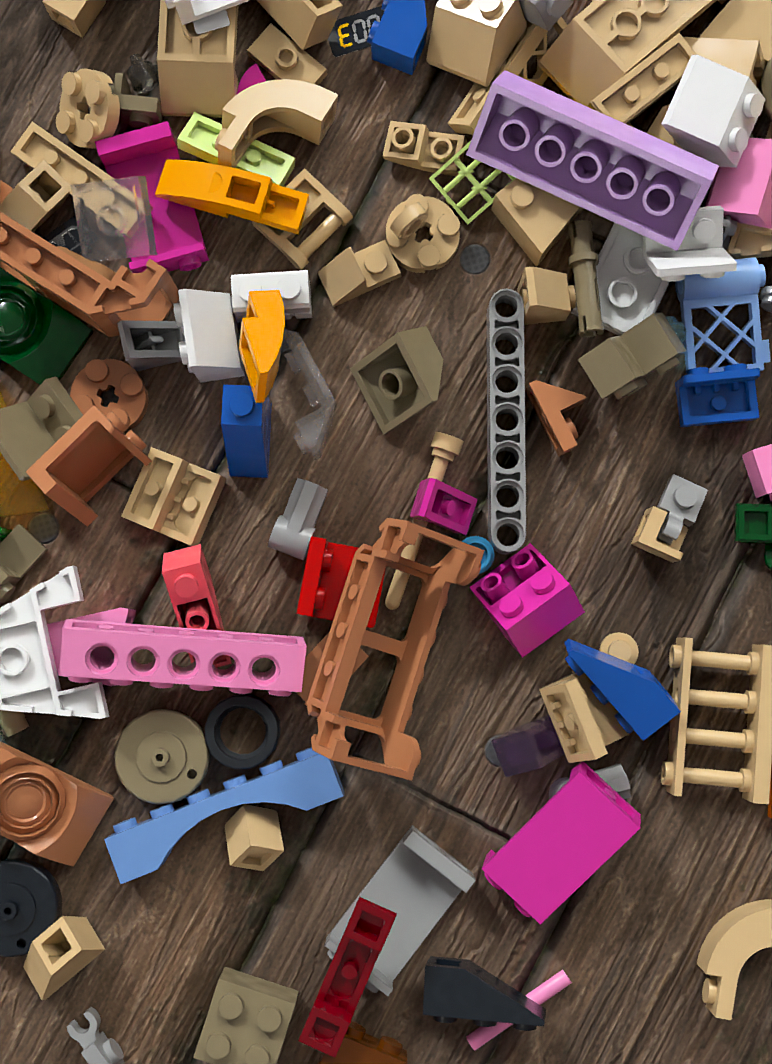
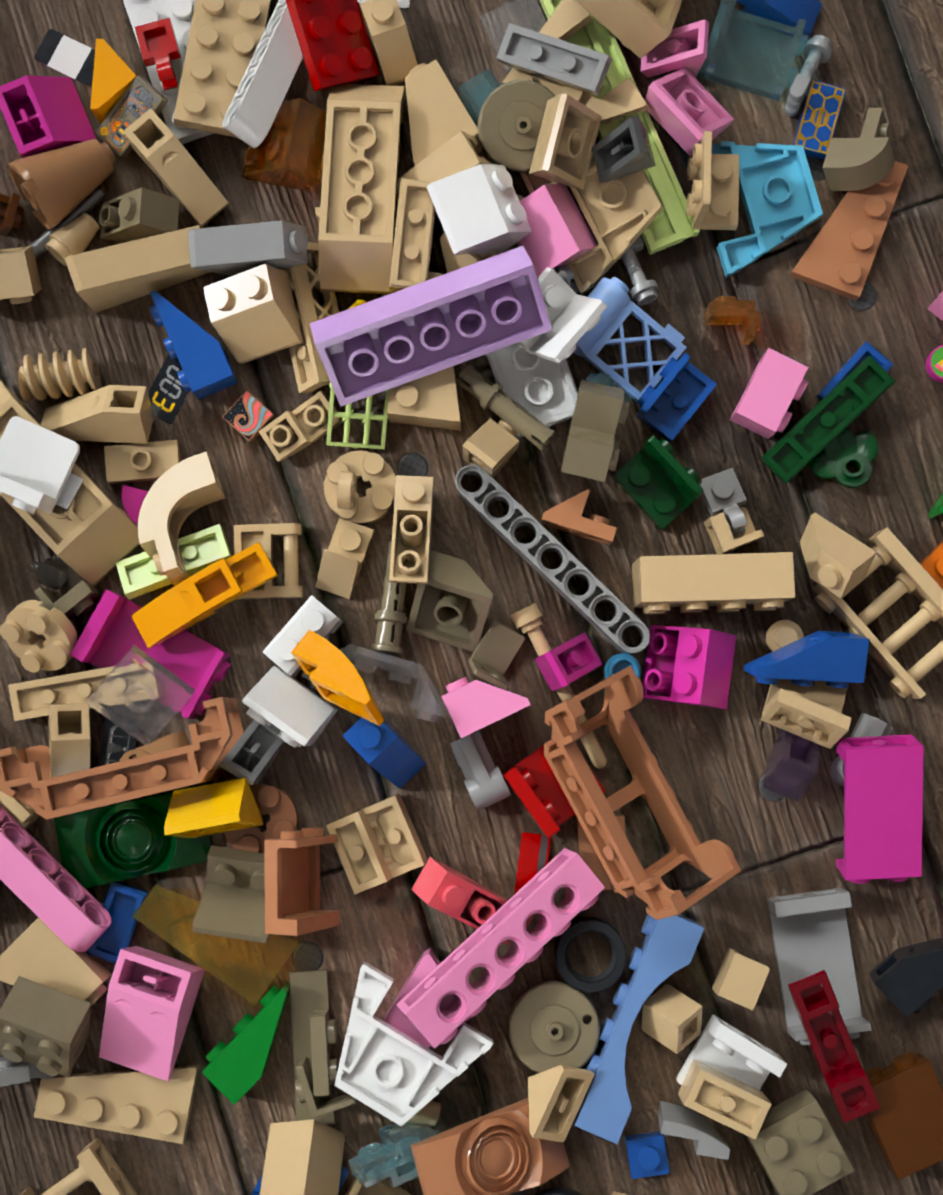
camera: 45 degrees left, 0 degrees up
(79, 349) = (212, 809): none -> yellow slope
(109, 807) = (555, 1100): none -> tan slope
(135, 916) = (647, 1155): none -> blue plate
(188, 926) = (689, 1124): none -> light grey slope
(230, 933) = (724, 1099): none -> tan panel
(258, 915) = (733, 1054): none -> white bracket
(274, 620) = (532, 857): none -> red sticker
(331, 861) = (740, 979): none -> tan panel
(345, 470) = (479, 704): none -> bright pink slope
(349, 345) = (391, 616): none -> dark tan pin
(394, 103) = (248, 416): none -> tile
(396, 448) = (495, 653): none -> dark tan bracket
(428, 295) = (411, 529): none -> tan slope
(608, 554) = (713, 580): none -> tan brick
(642, 445) = (659, 482): none -> dark green bracket
(717, 628) = (834, 556): none -> tan slope

